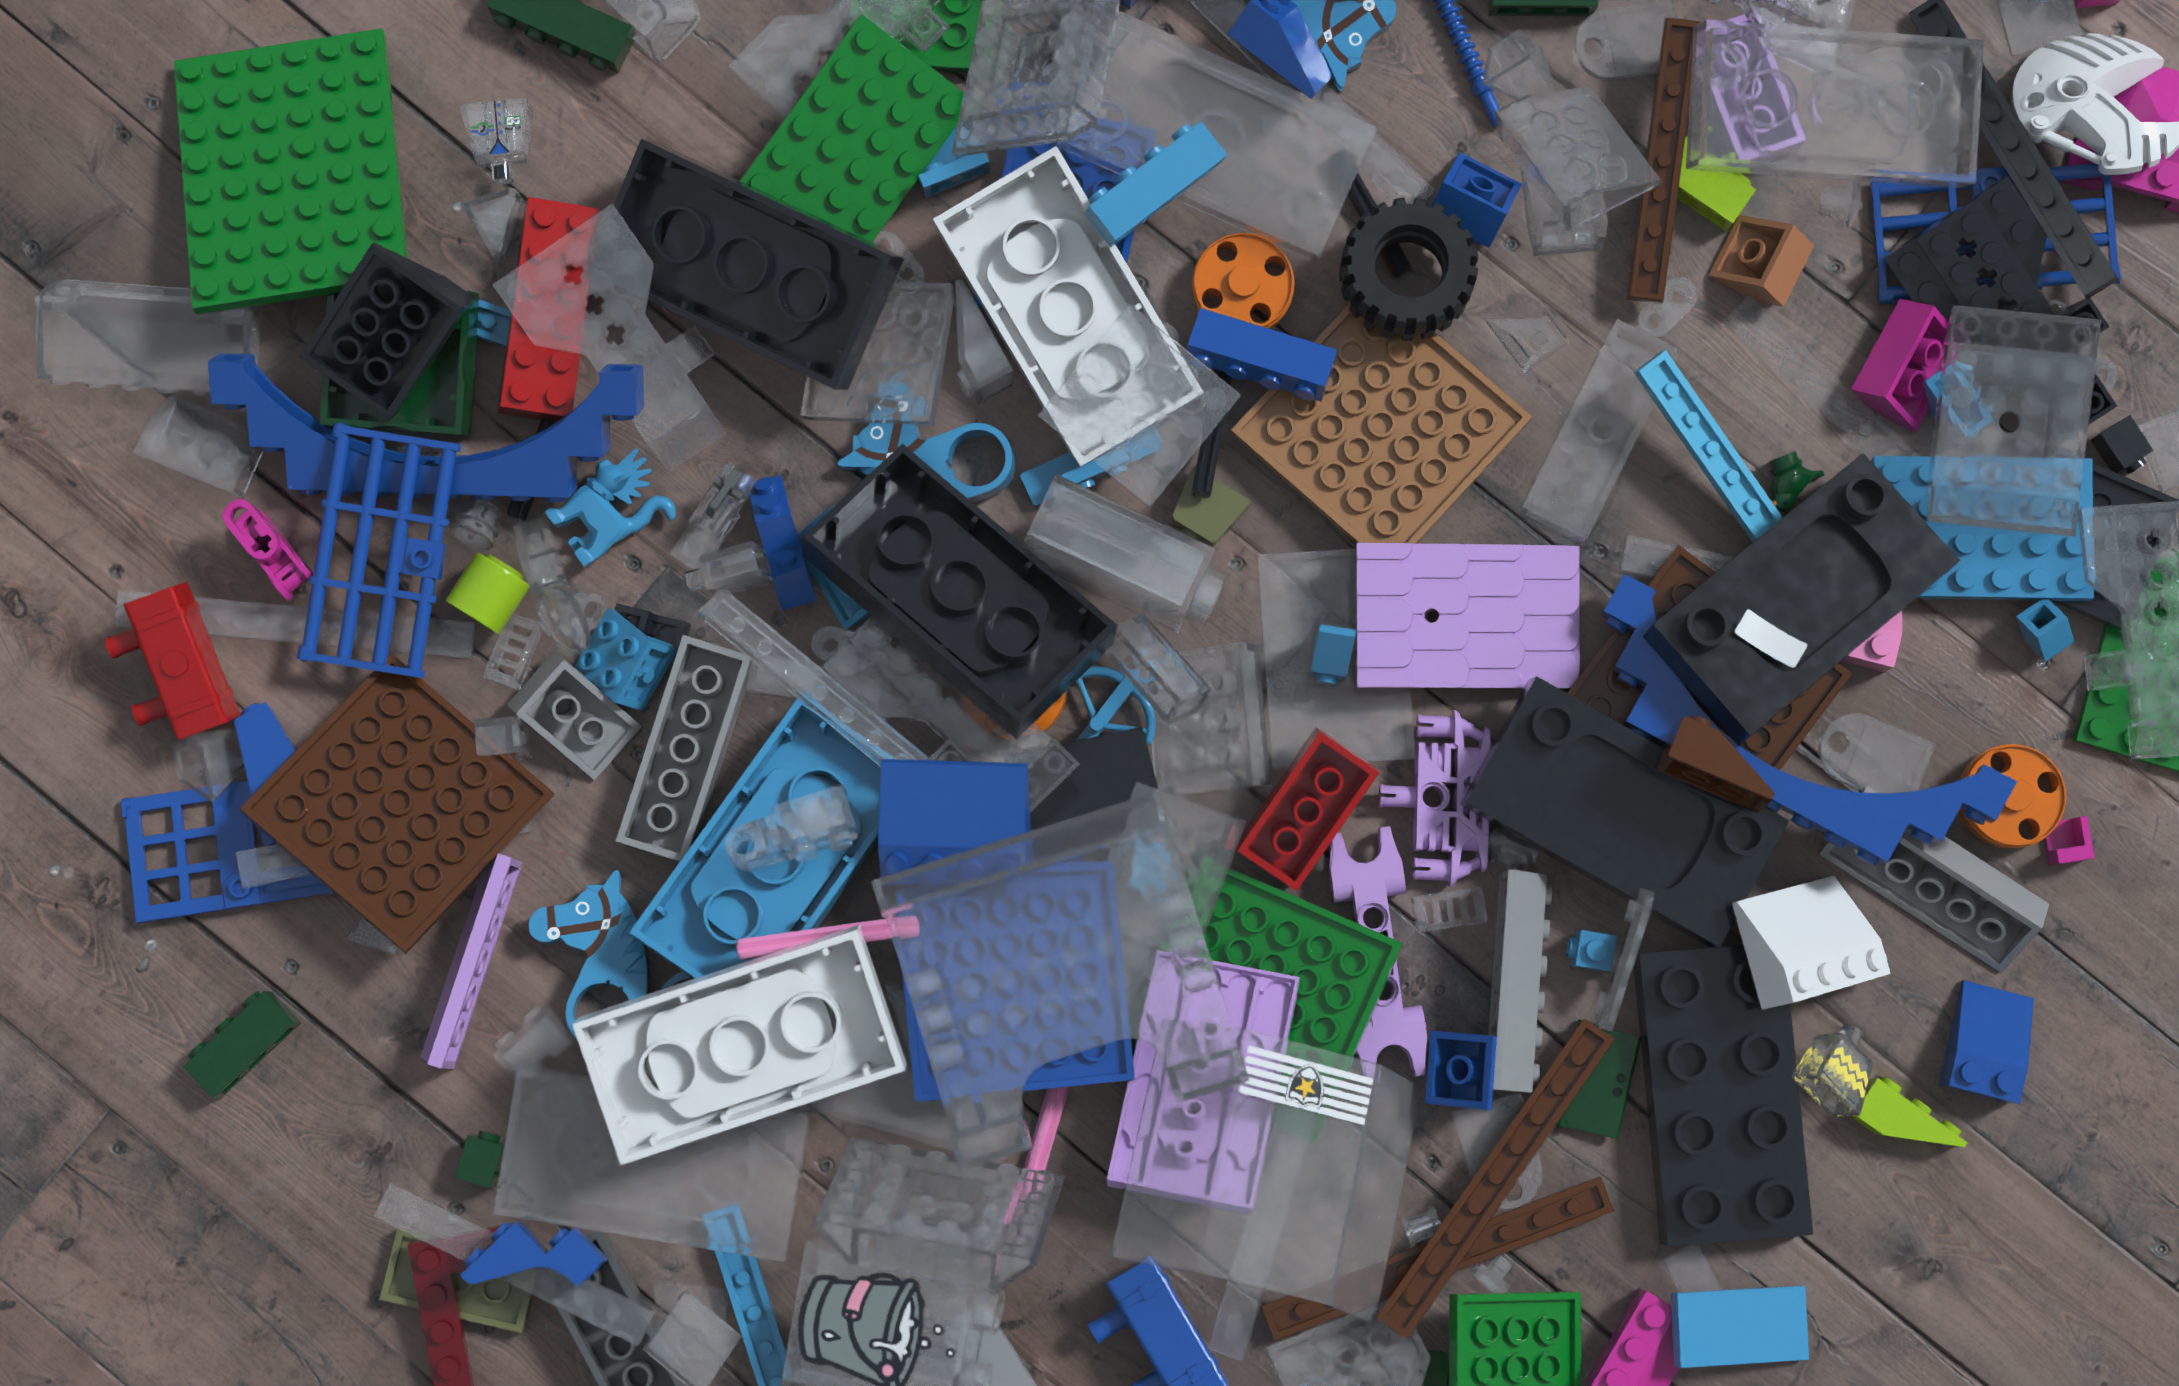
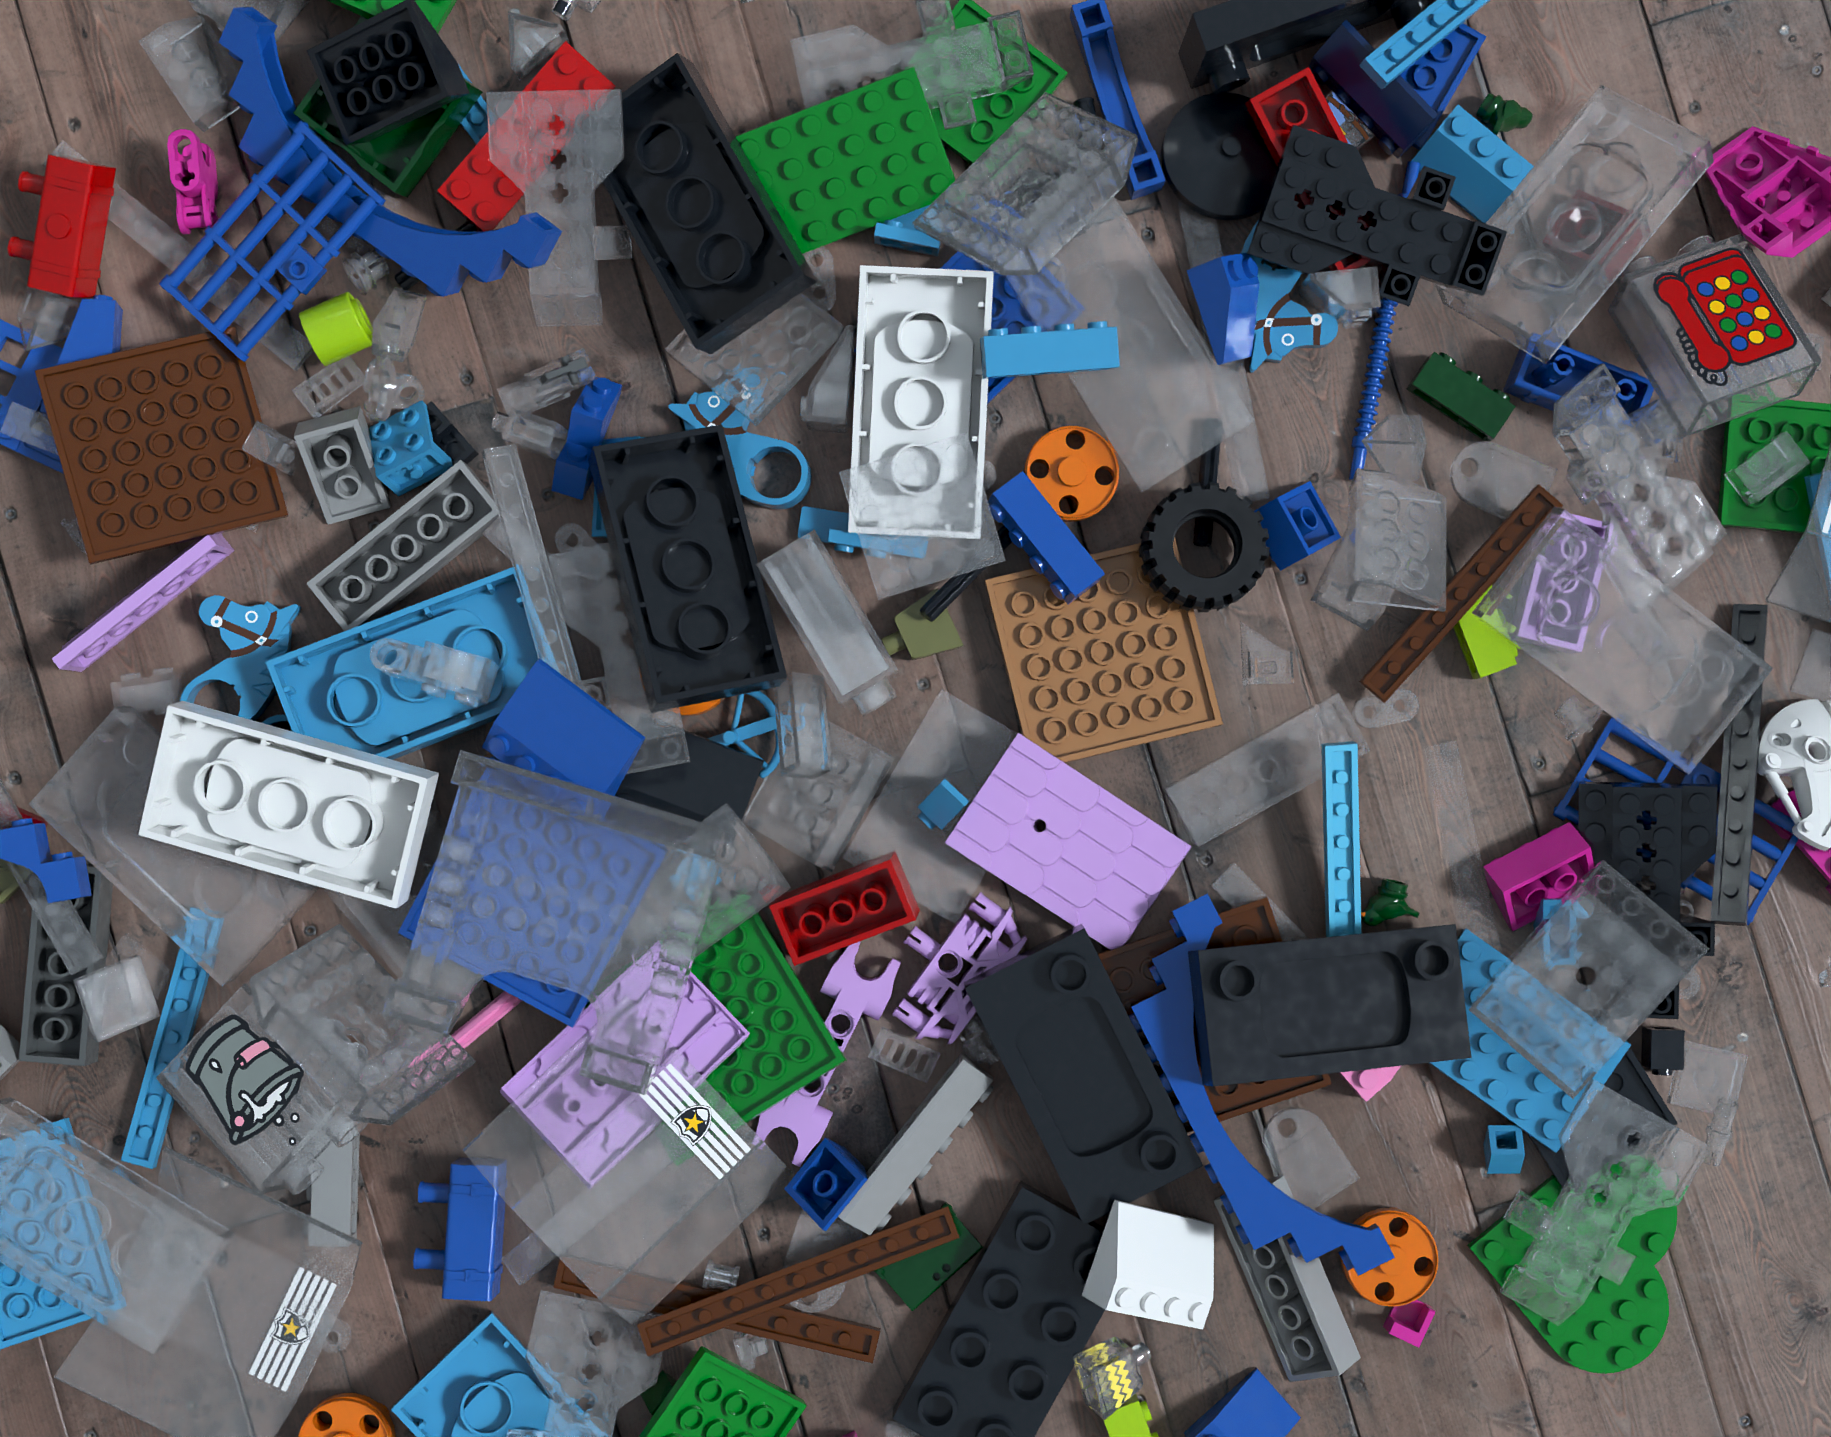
camera: 35 degrees right, 5 degrees up
(481, 1159) = (52, 753): dark green brick -> none
(602, 520) = (462, 324): dark azure animal -> none
(764, 945) = (366, 743): bright pink axle -> none
(1591, 951) = (989, 1159): dark azure brick -> none
(1637, 916) = (1036, 1161): clear plate -> none
(1711, 763) = (1168, 1083): reddish brown slope -> none
(1762, 259) = (1485, 720): nougat slope -> none
(1770, 639) = (1280, 1022): white sticker -> none

